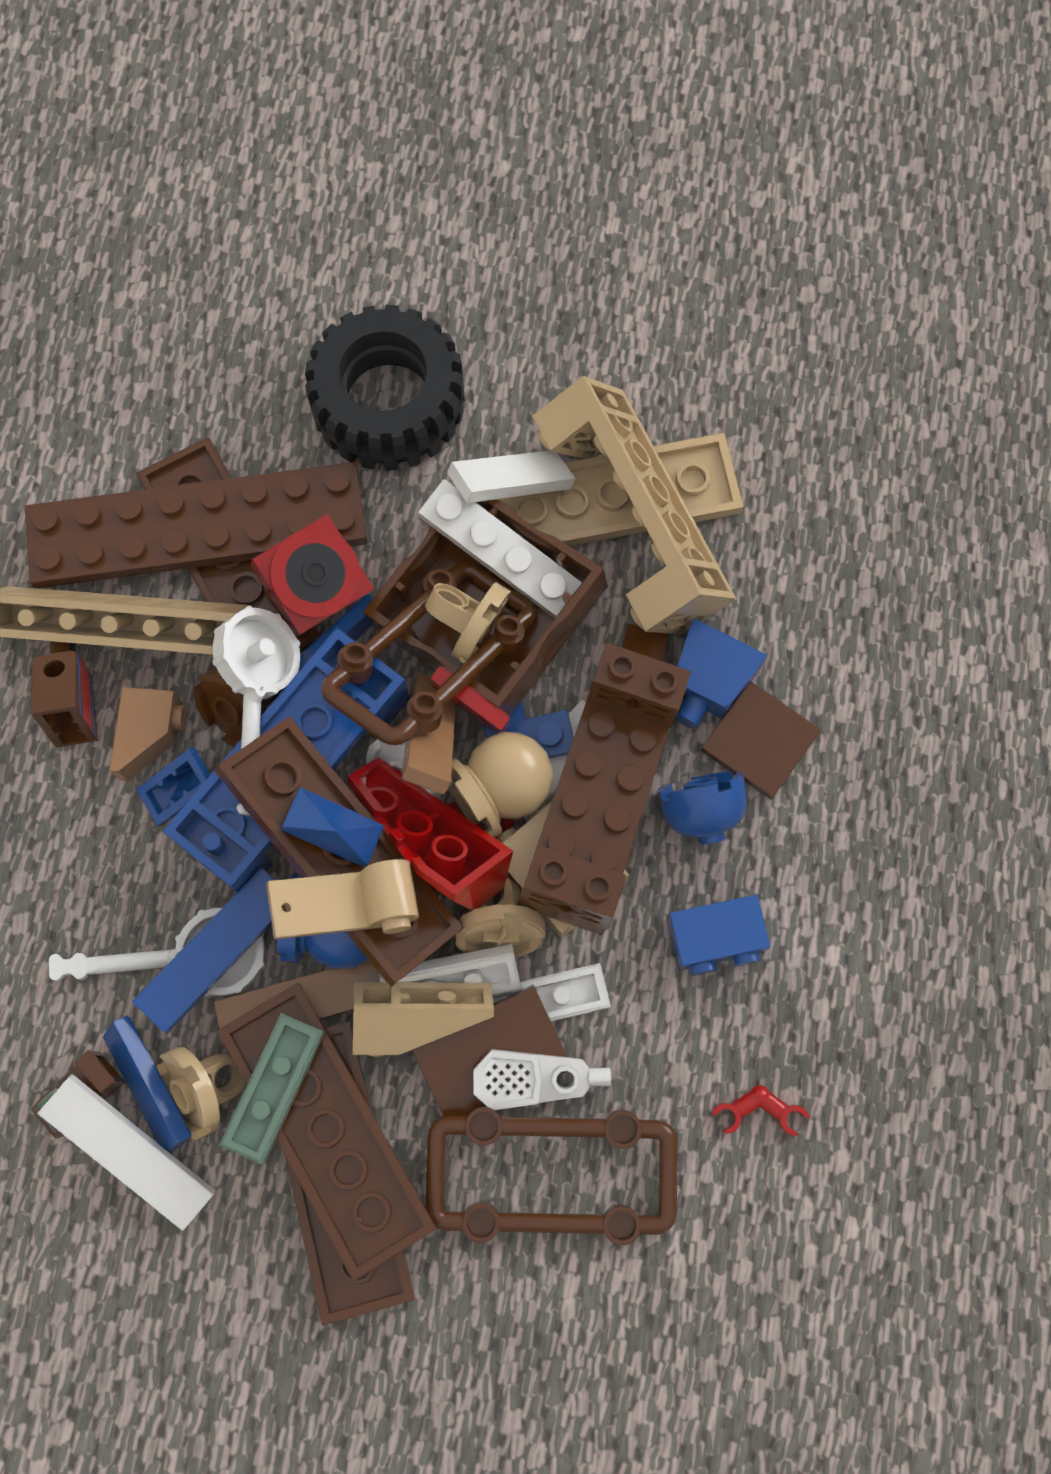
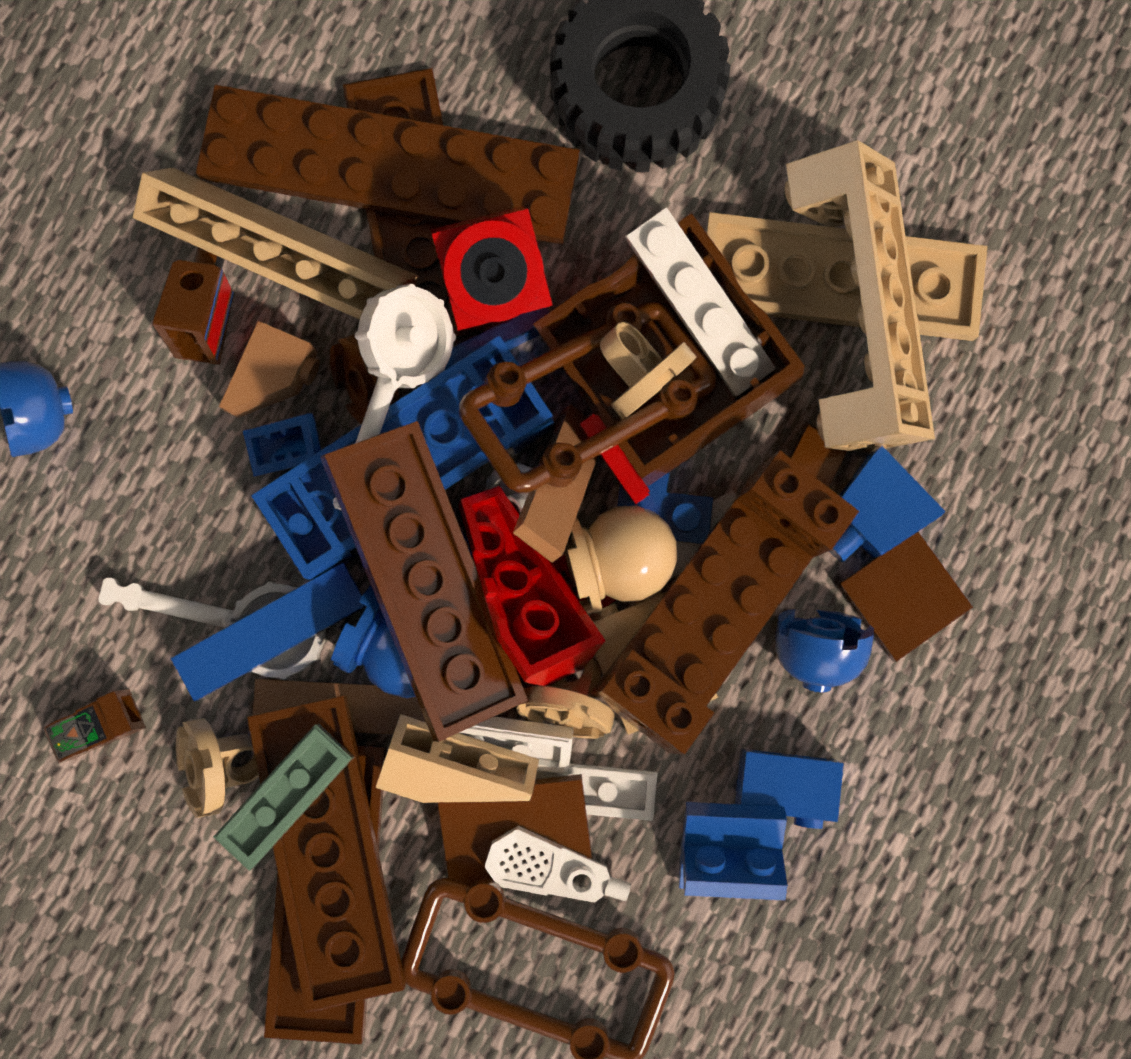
camera: 20 degrees right, 10 degrees up
(126, 1152) = (123, 803): white tile -> none
(146, 1084) = (164, 742): blue tile -> none
(332, 827) = (424, 556): blue slope -> none
(344, 902) = (411, 642): tan door -> none
(510, 476) = (739, 224): white tile -> none
(688, 1003) = (733, 851): none -> blue bracket
(759, 1097) = (771, 962): red arm -> none

